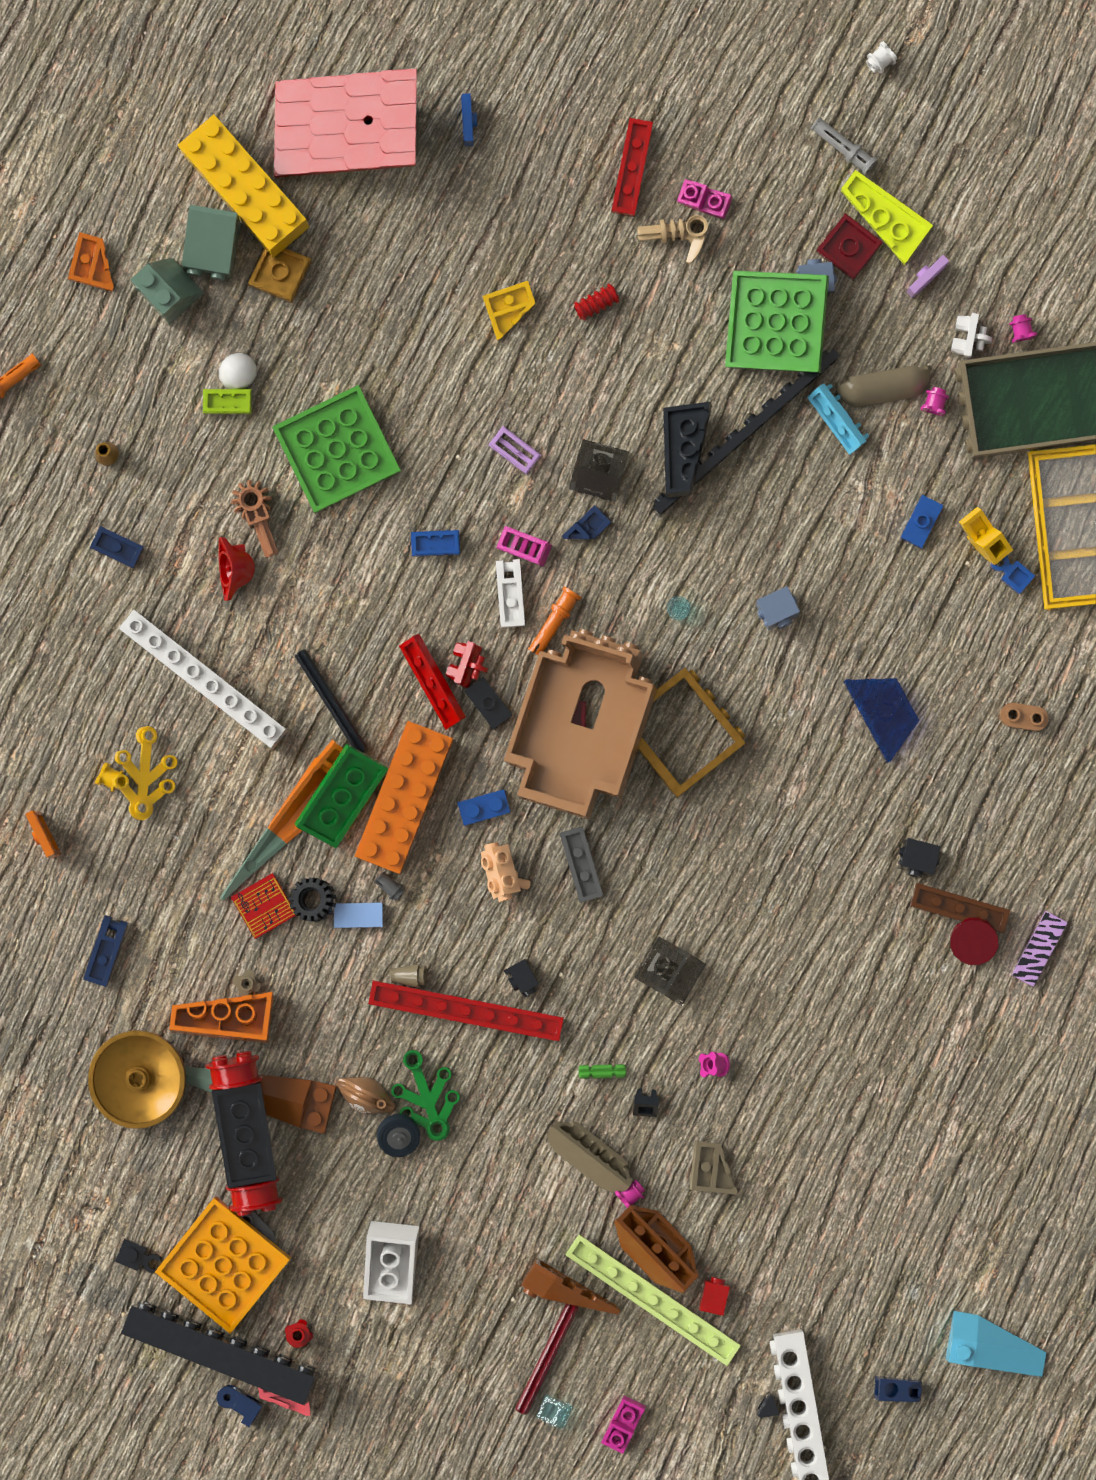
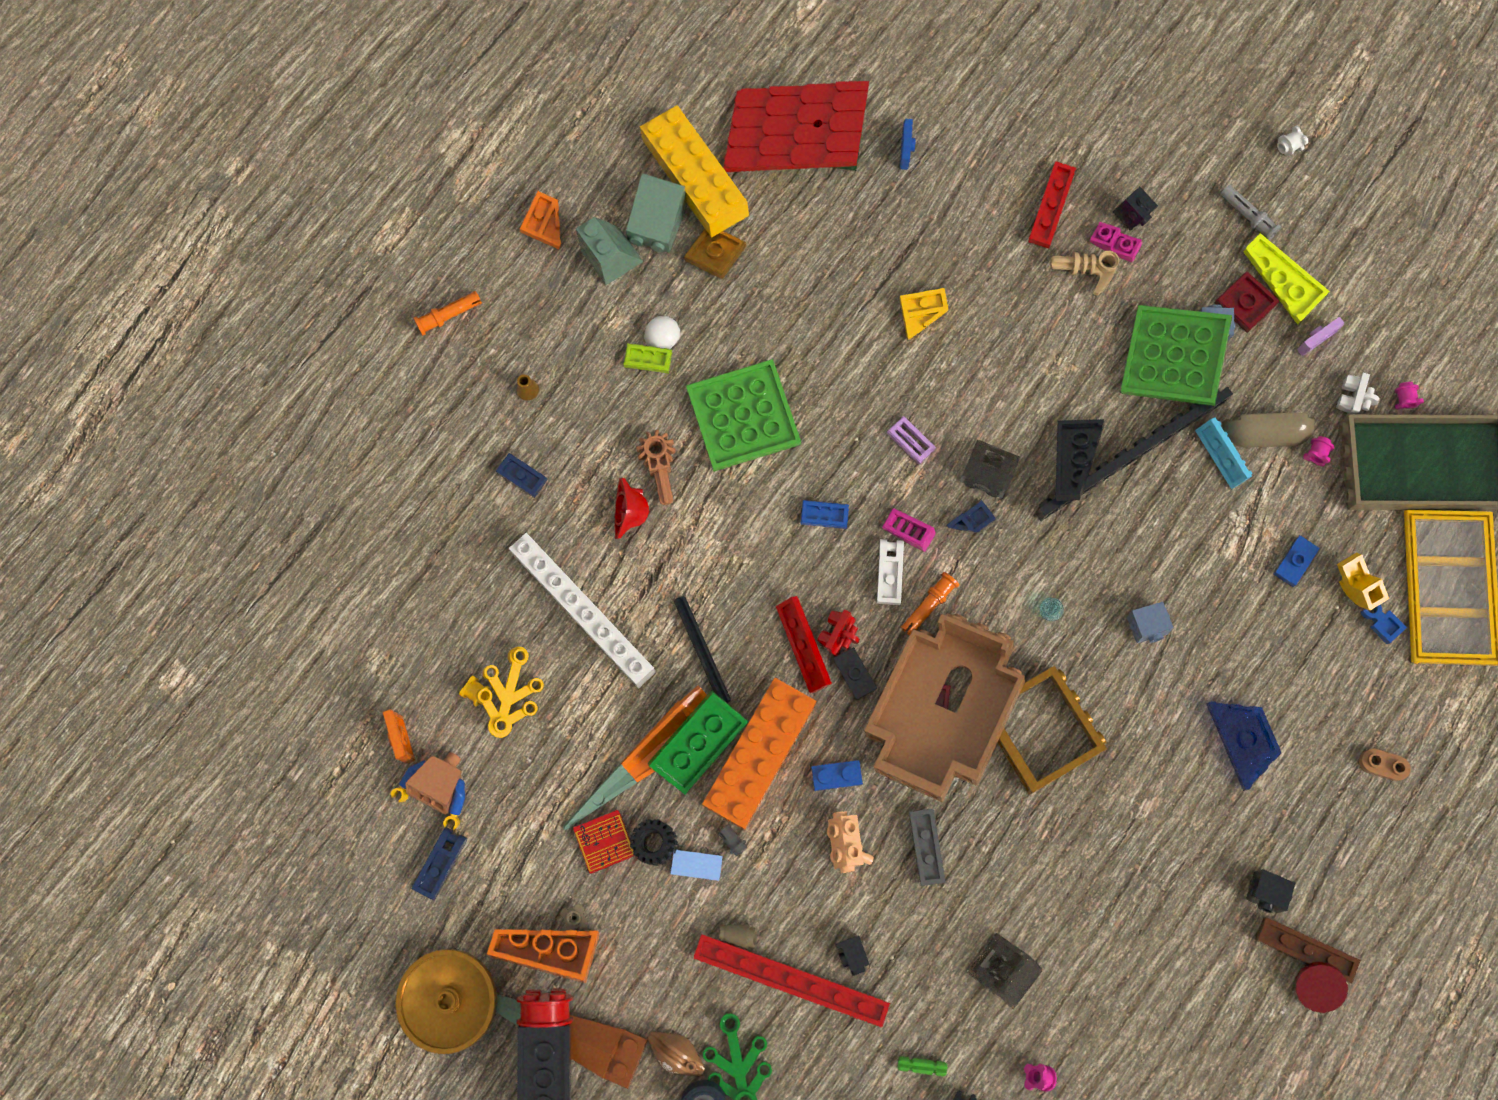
camera: 10 degrees right, 10 degrees down
(88, 875) = (436, 785): none -> nougat torso
(596, 302) = (1005, 317): red piece -> none
(720, 162) = (1135, 209): none -> black head
(1039, 948) = (1385, 1005): tile -> none

